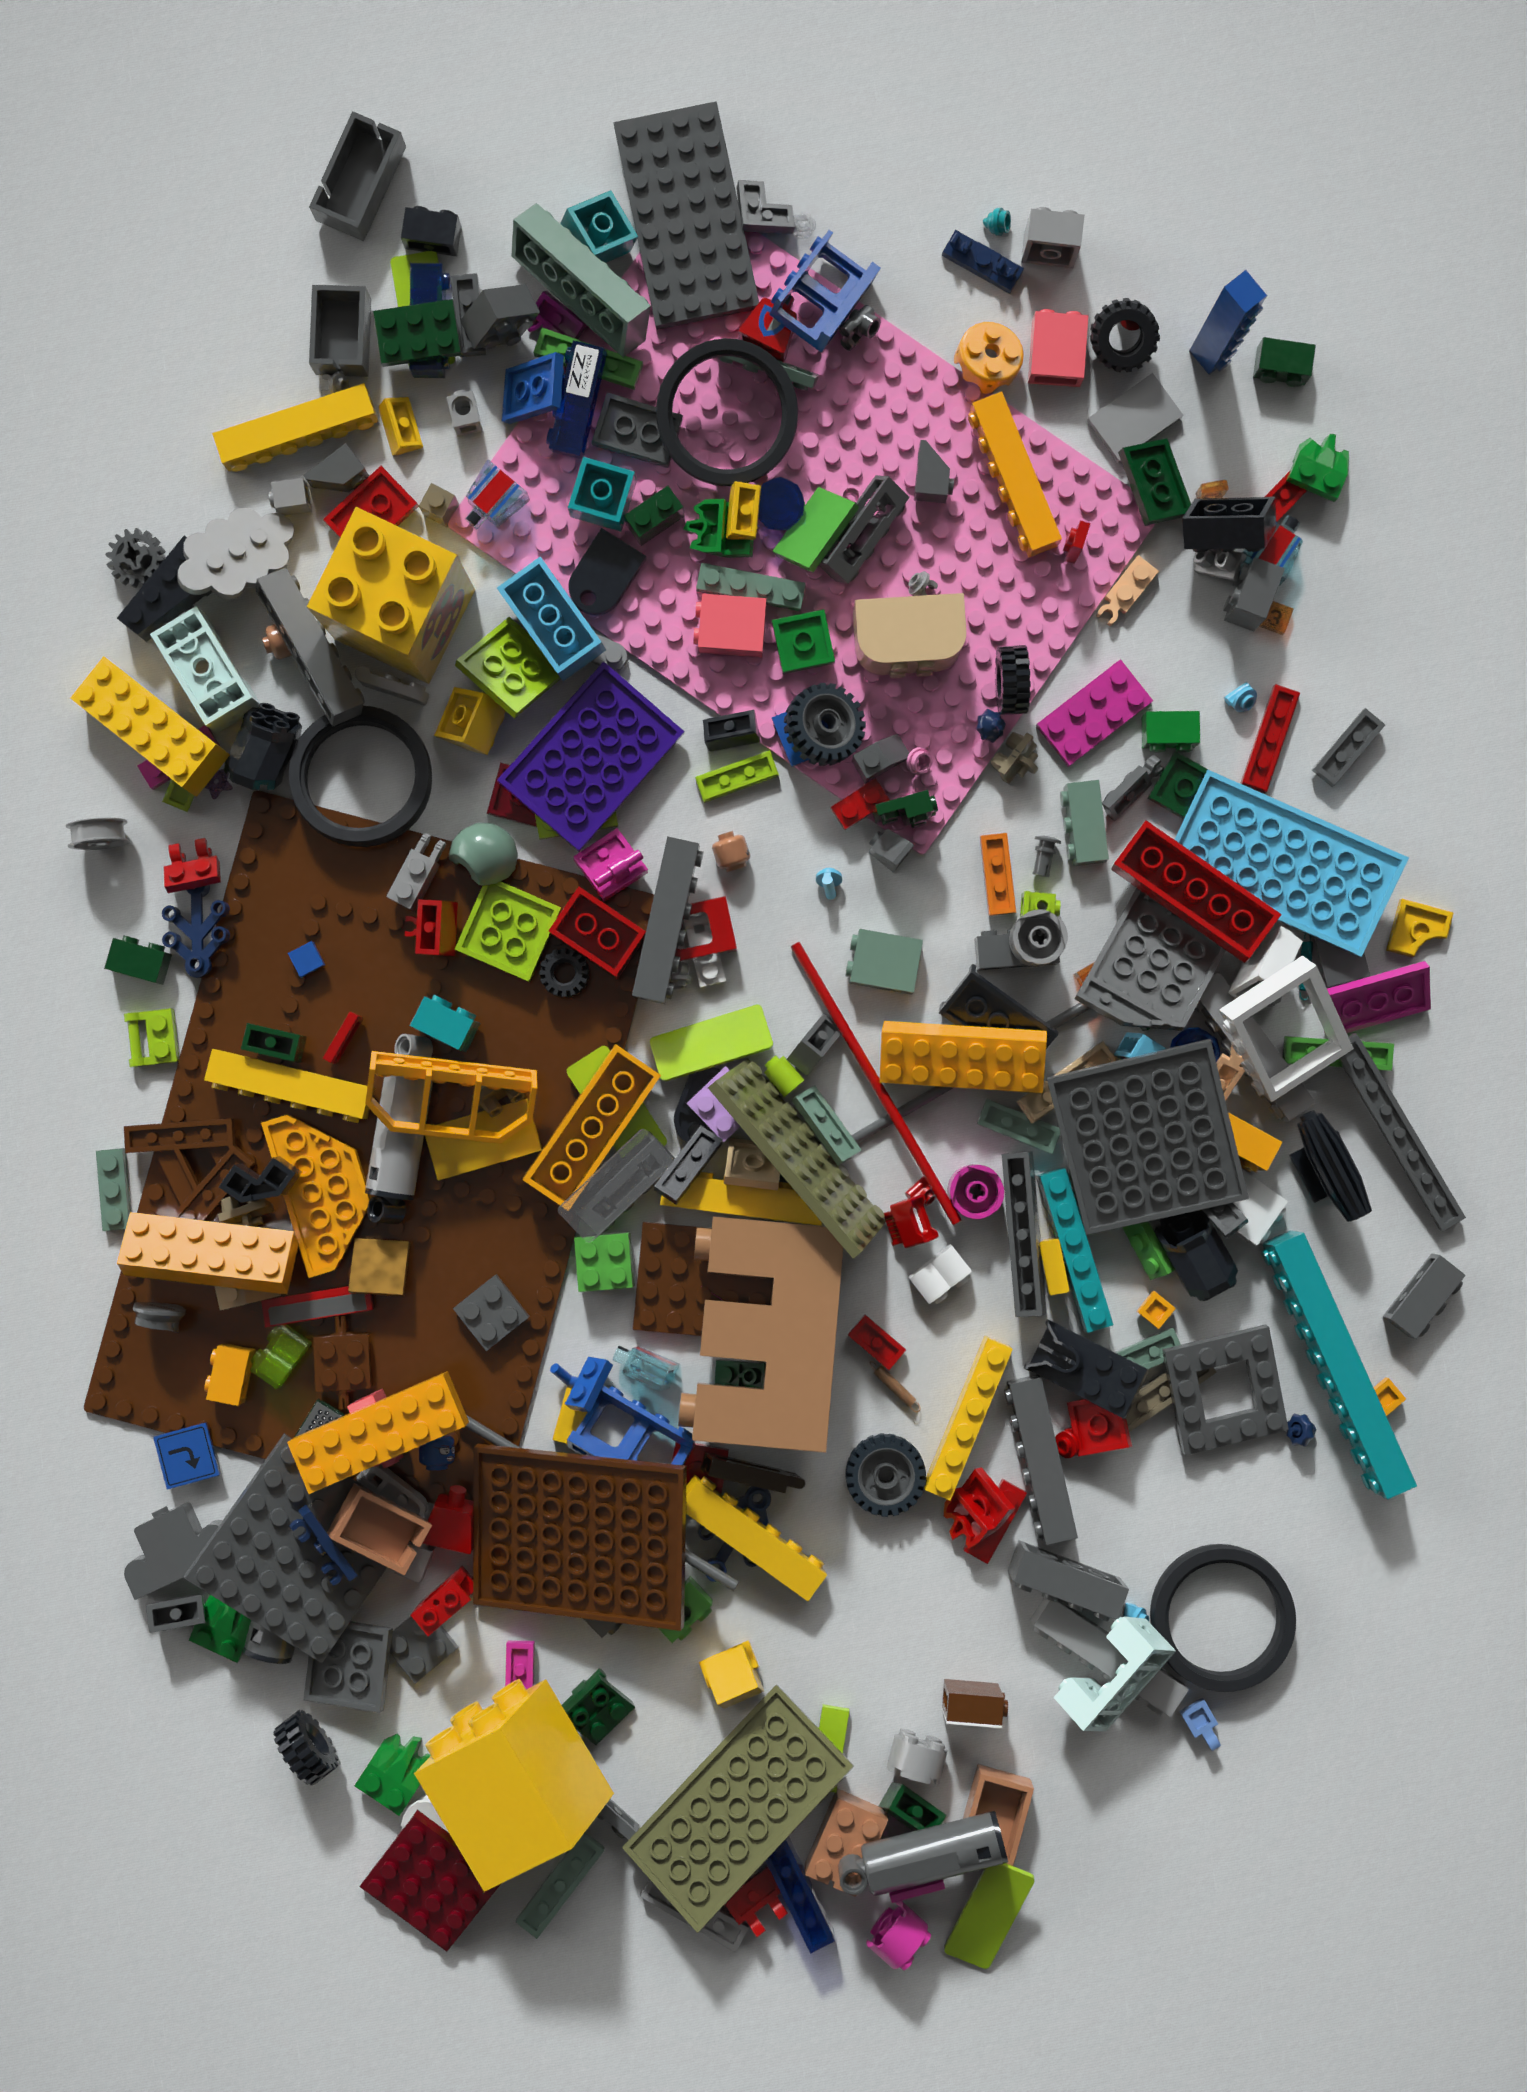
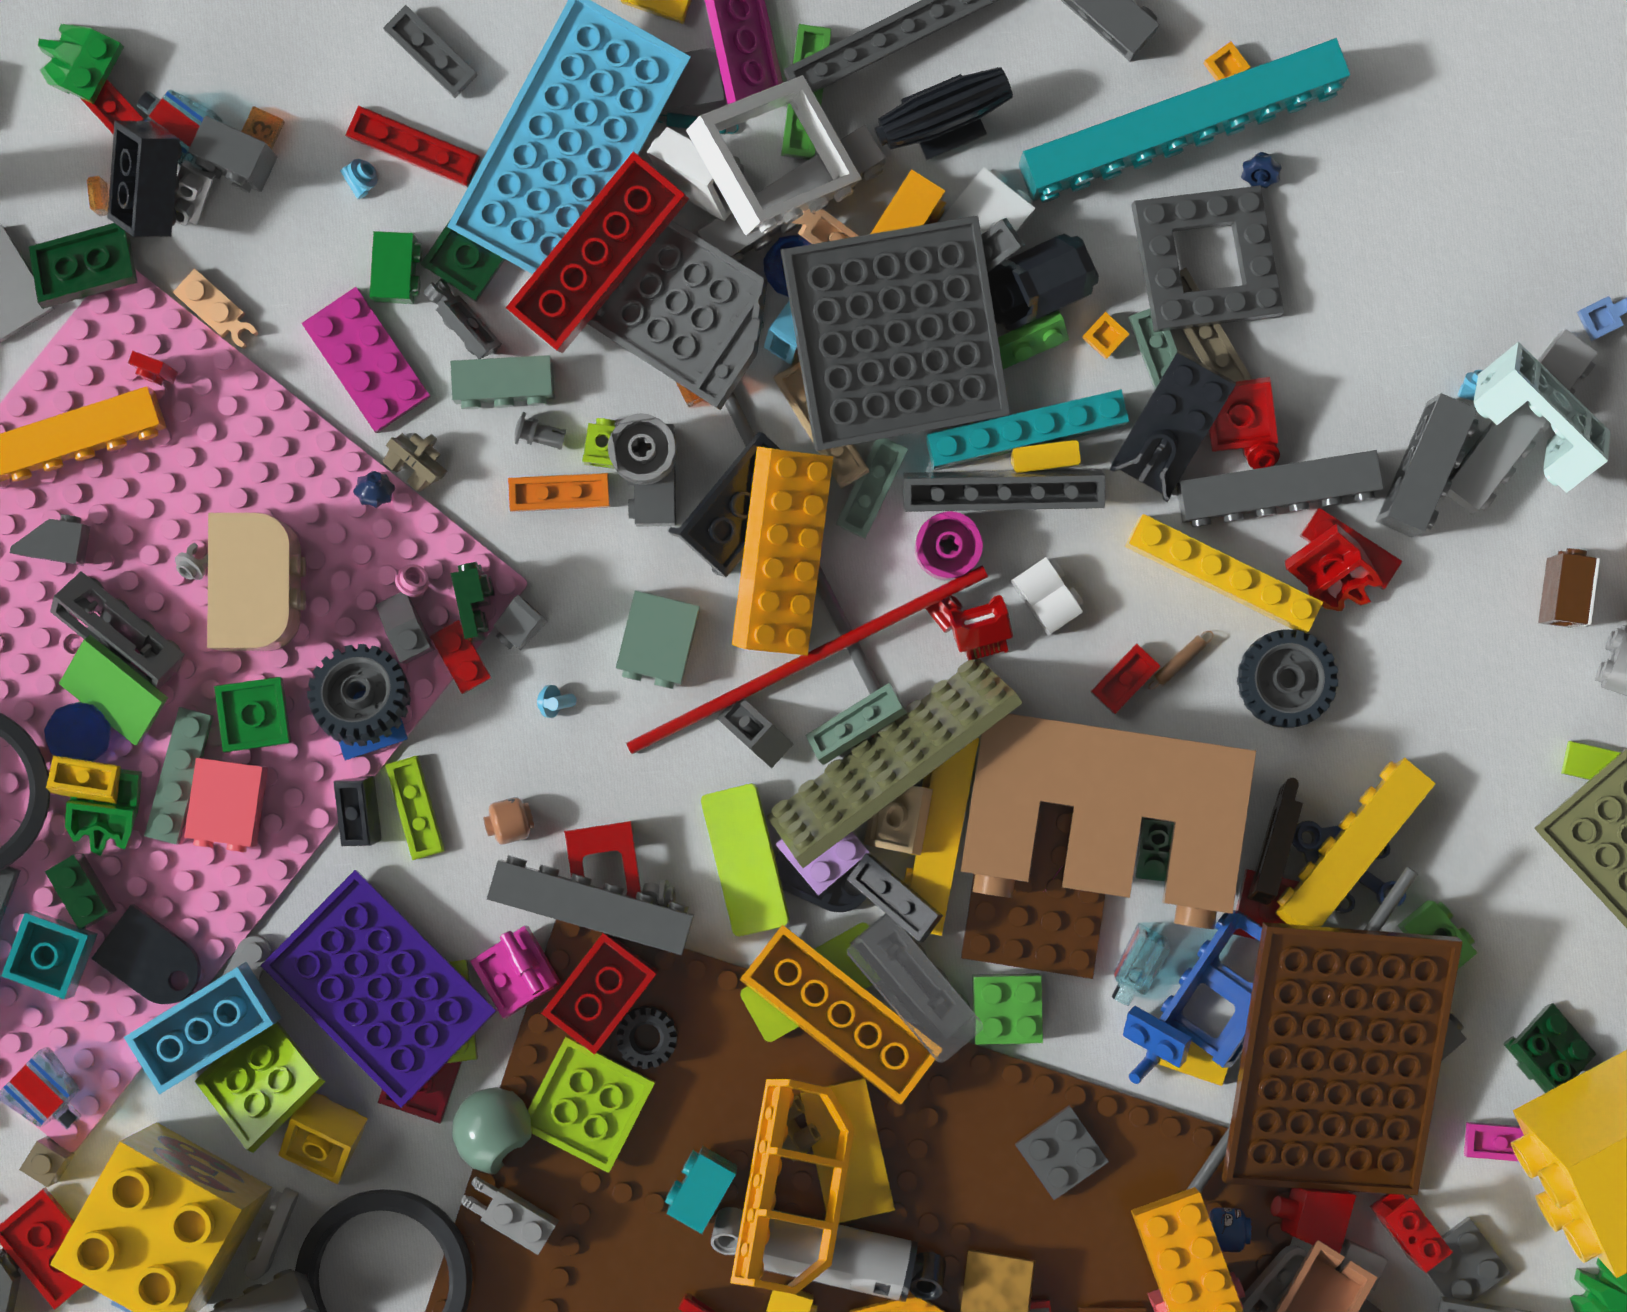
camera: 85 degrees left, 0 degrees up
(435, 927) = (580, 1196): red brick -> none
(709, 967) = (651, 855): white plate -> none
(732, 1675) = (1520, 880): yellow plate -> none
(782, 1075) = (790, 773): lime brick -> none
(1012, 679) = (320, 459): black bush -> none
(1284, 1630) = (1499, 207): black tyre -> none

